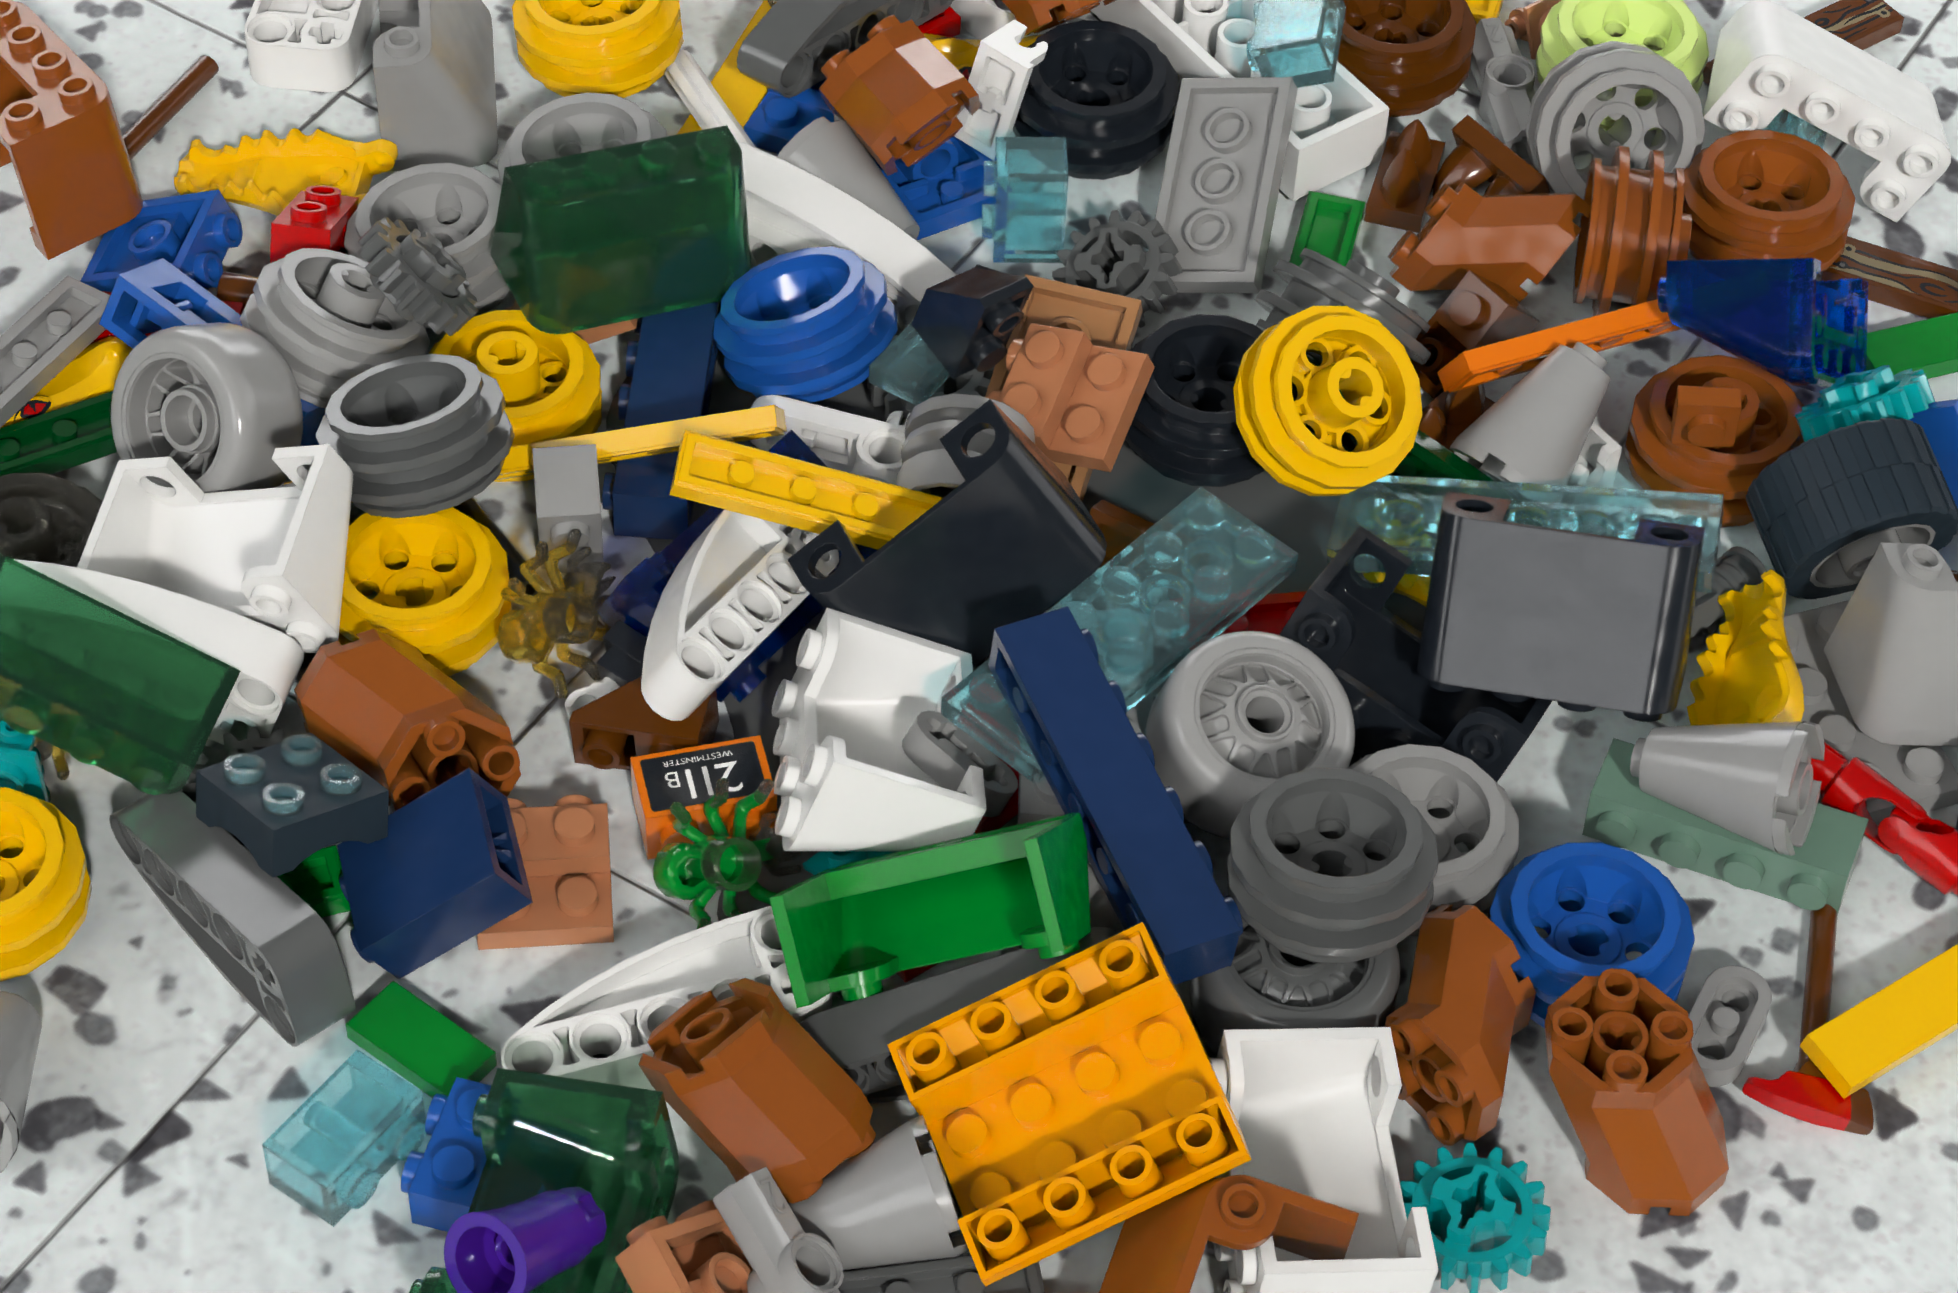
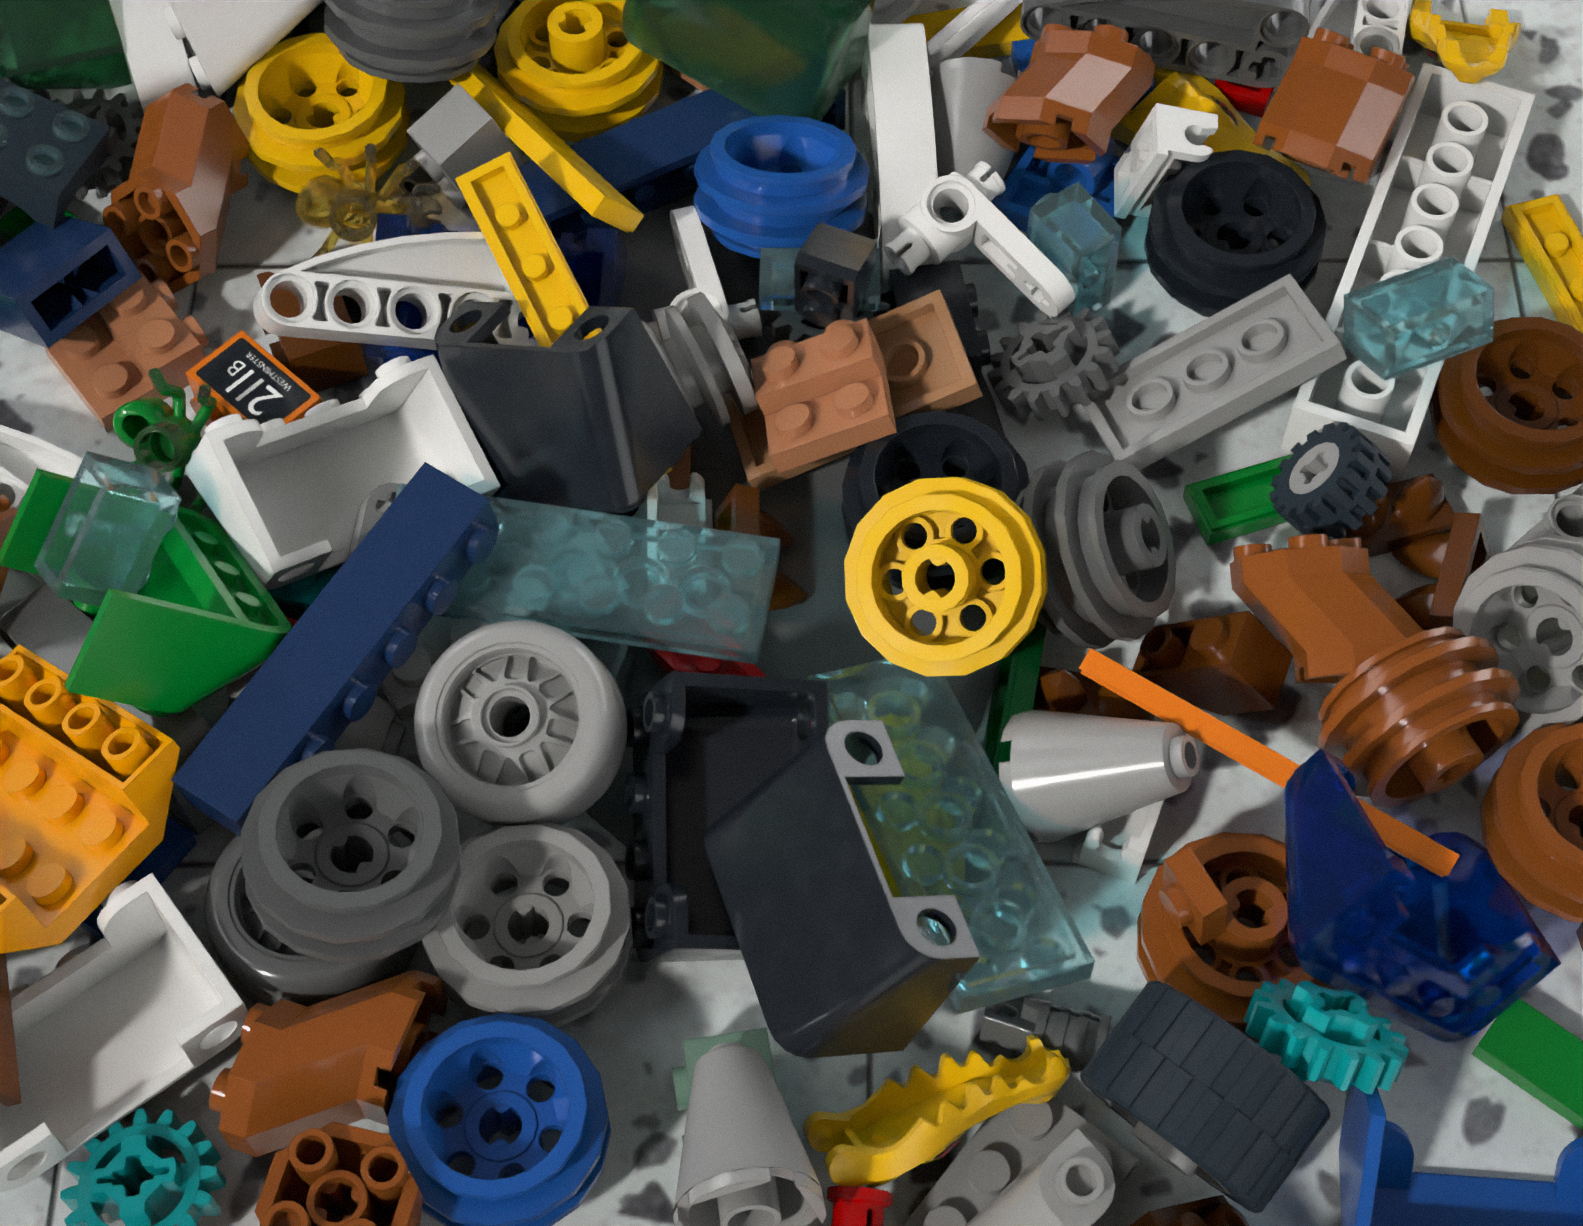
camera: 60 degrees right, 10 degrees up
(852, 901) = (107, 529): none -> clear light blue brick
(956, 224) = (987, 228): none -> white piece
(1403, 173) = (1331, 481): none -> black wheel

